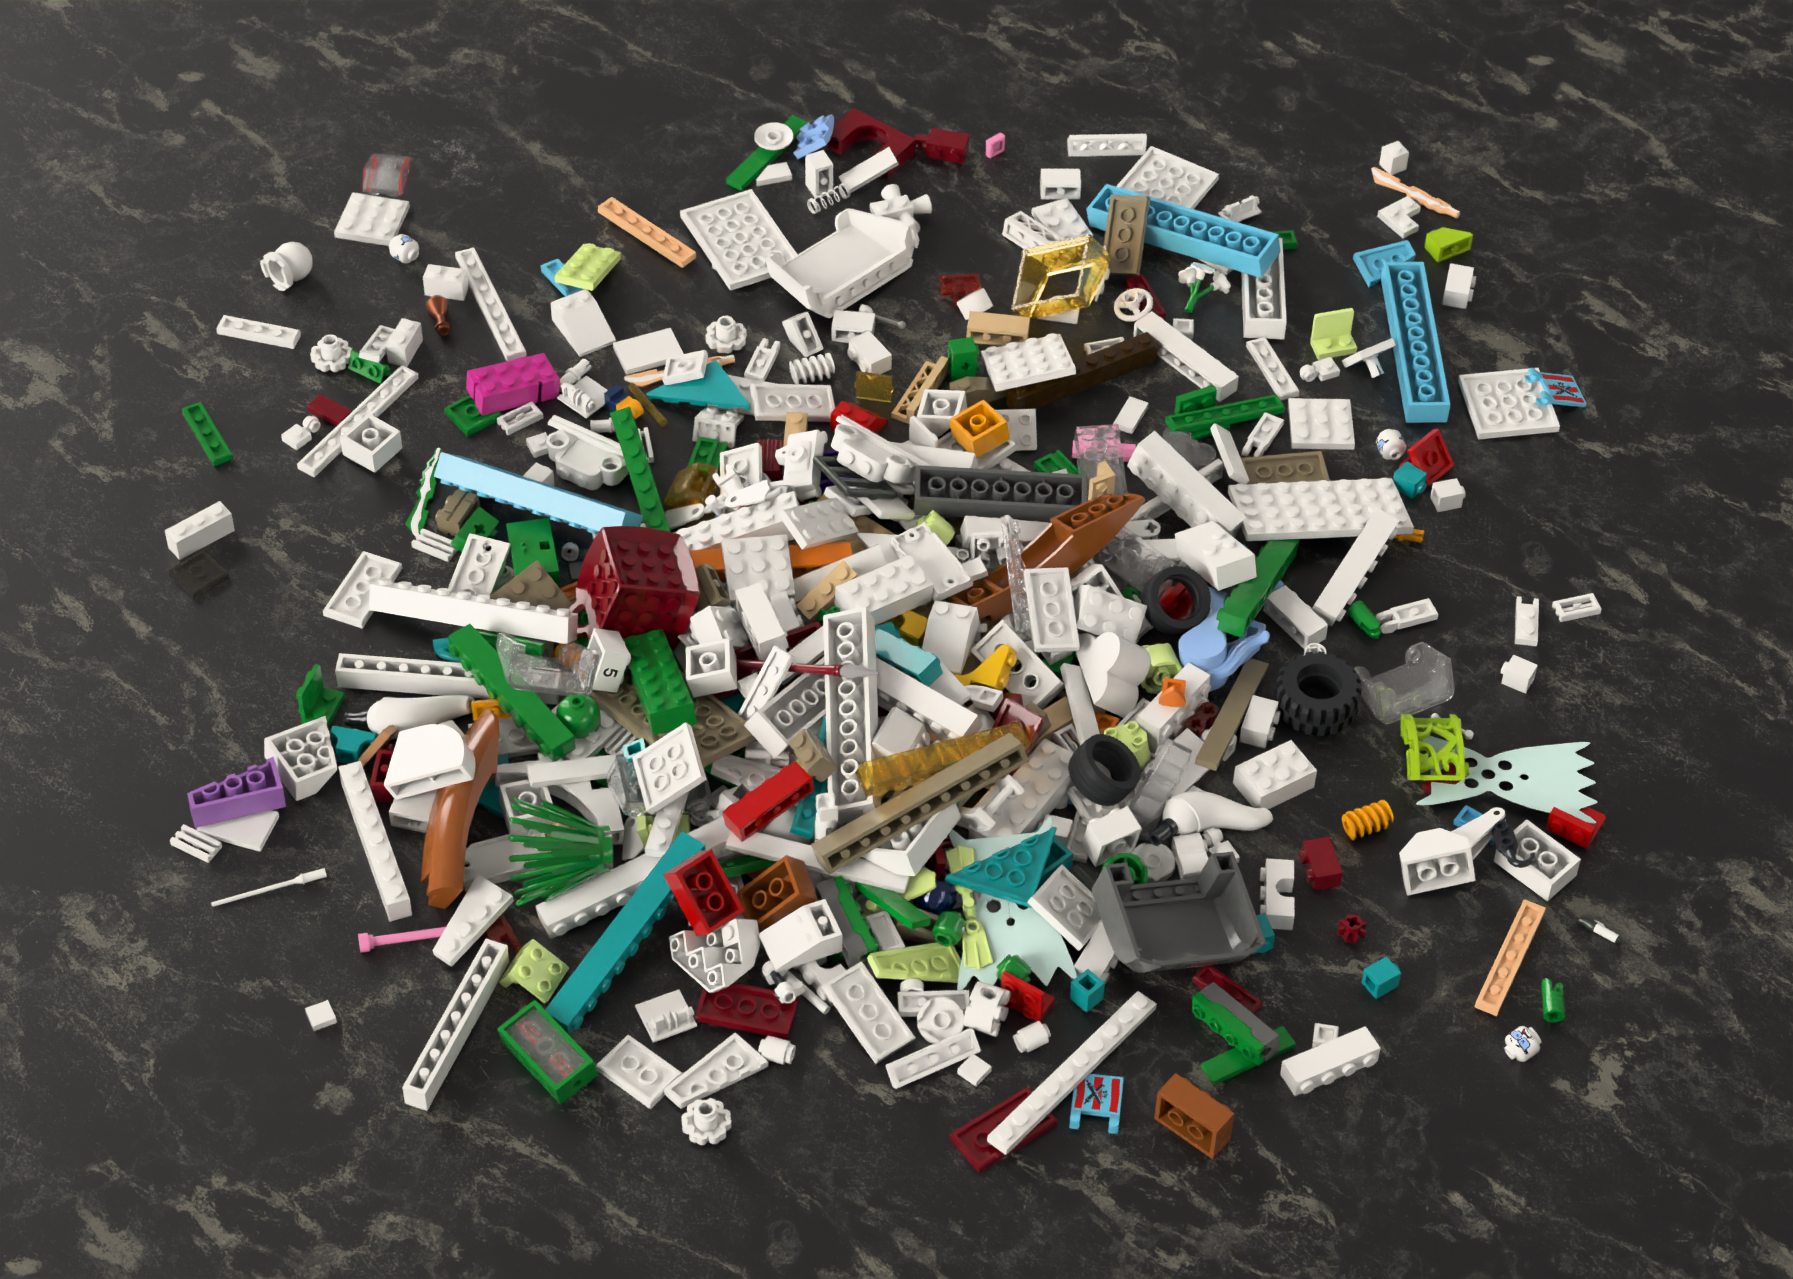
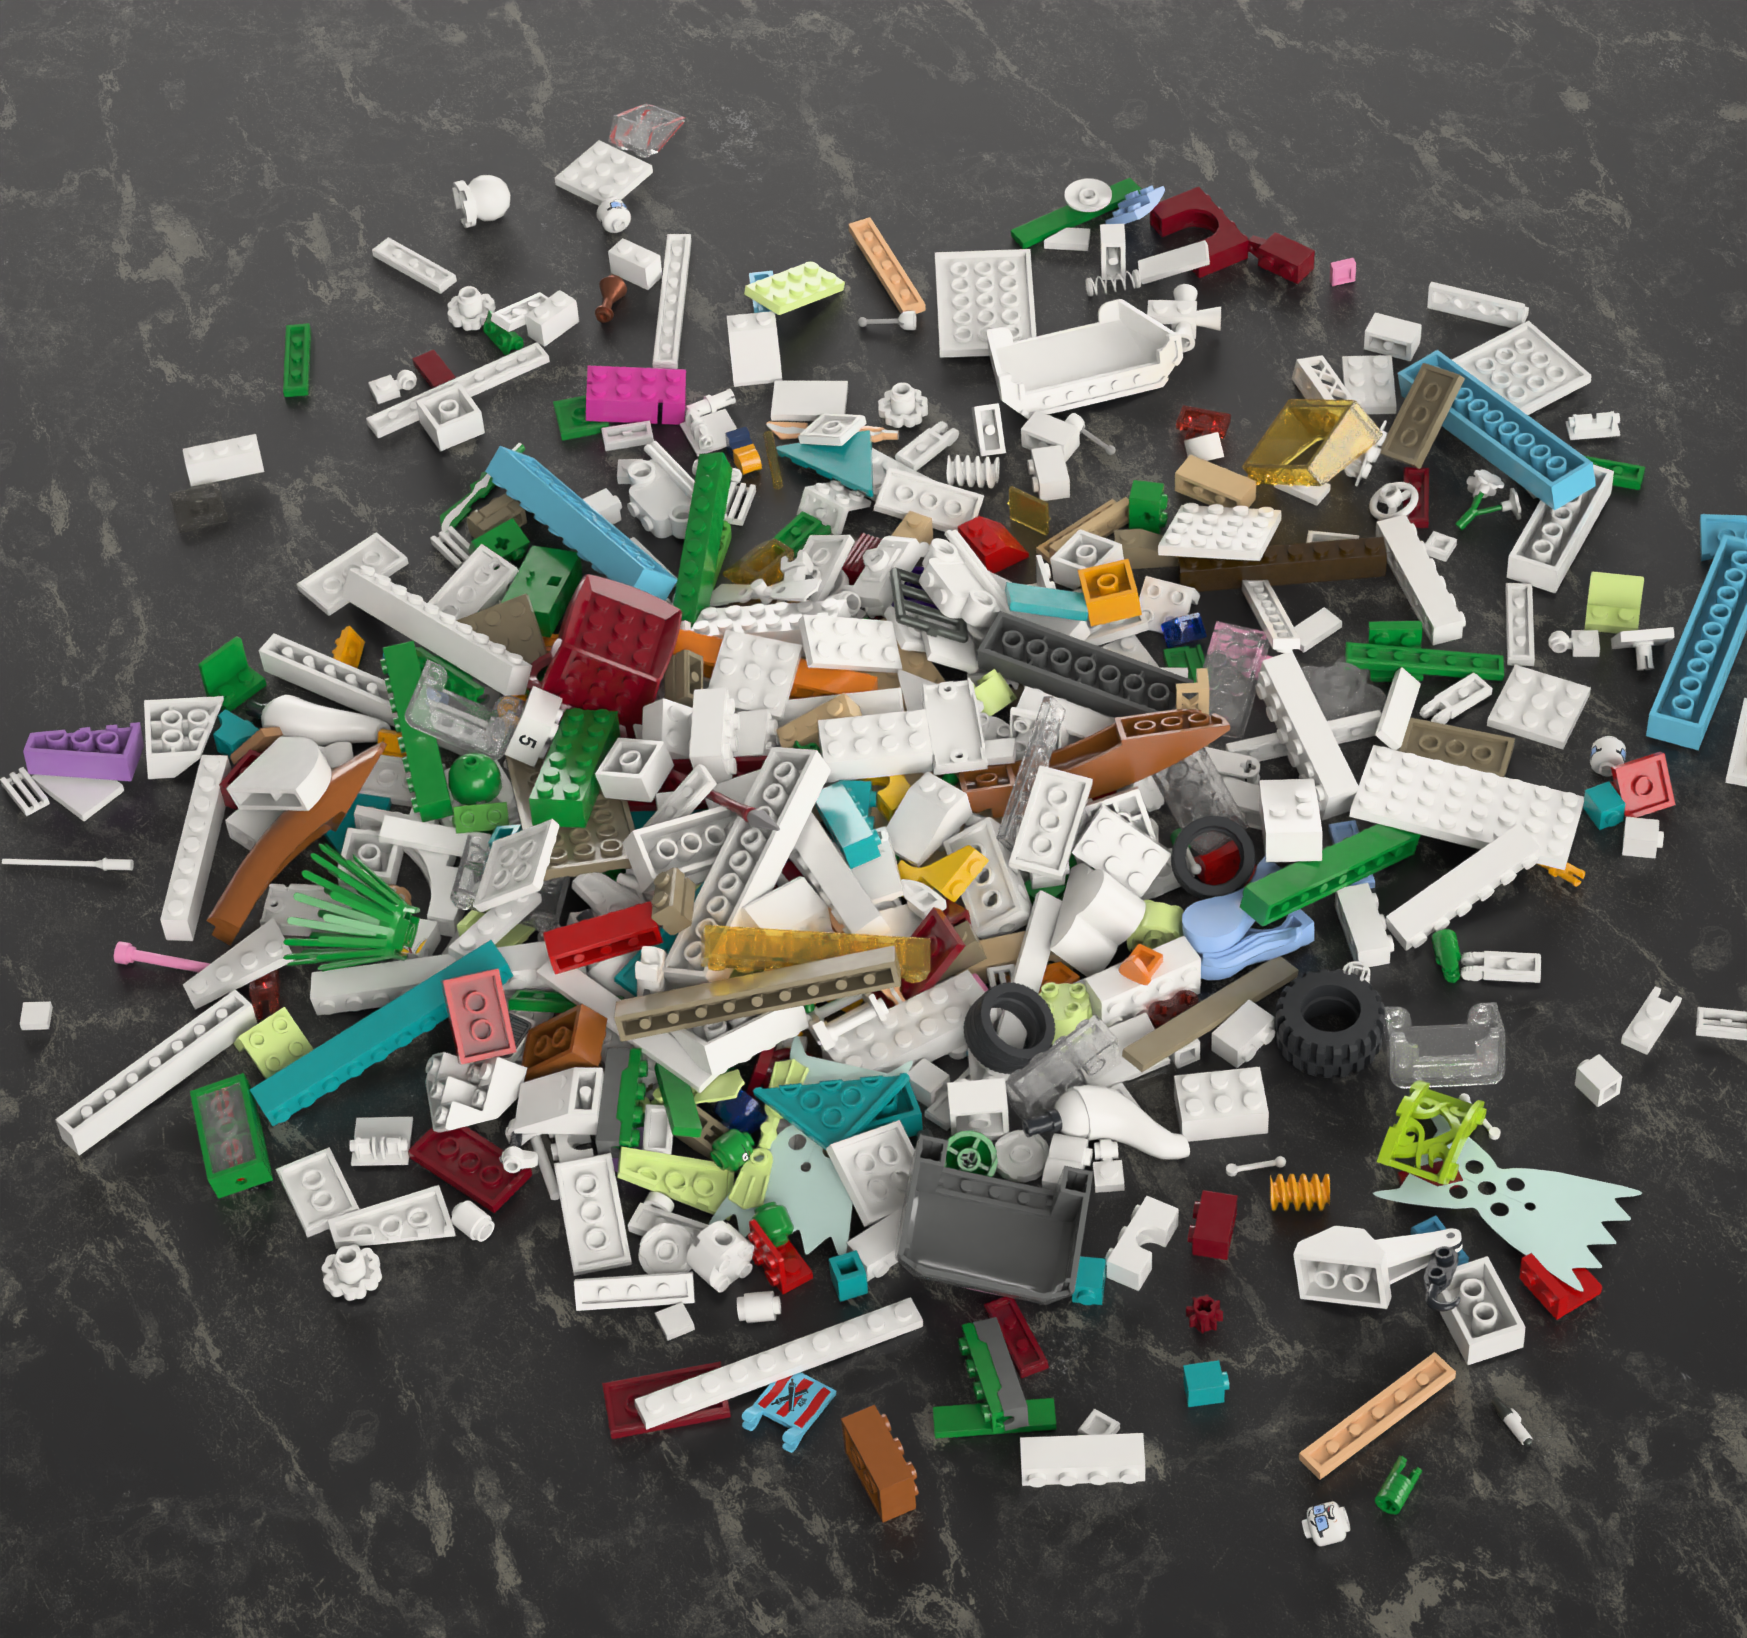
camera: 30 degrees right, 0 degrees up
(398, 646) = (349, 647): none -> light orange plate
(601, 744) = (480, 817): none -> bright green hinge
(687, 269) = (906, 320): none -> hinge
(942, 448) = (1046, 601): none -> tile
(1039, 443) = (1183, 630): none -> clear blue bracket
(1111, 410) = (1271, 615): none -> white plate
(1305, 821) = (1232, 1169): none -> white hinge

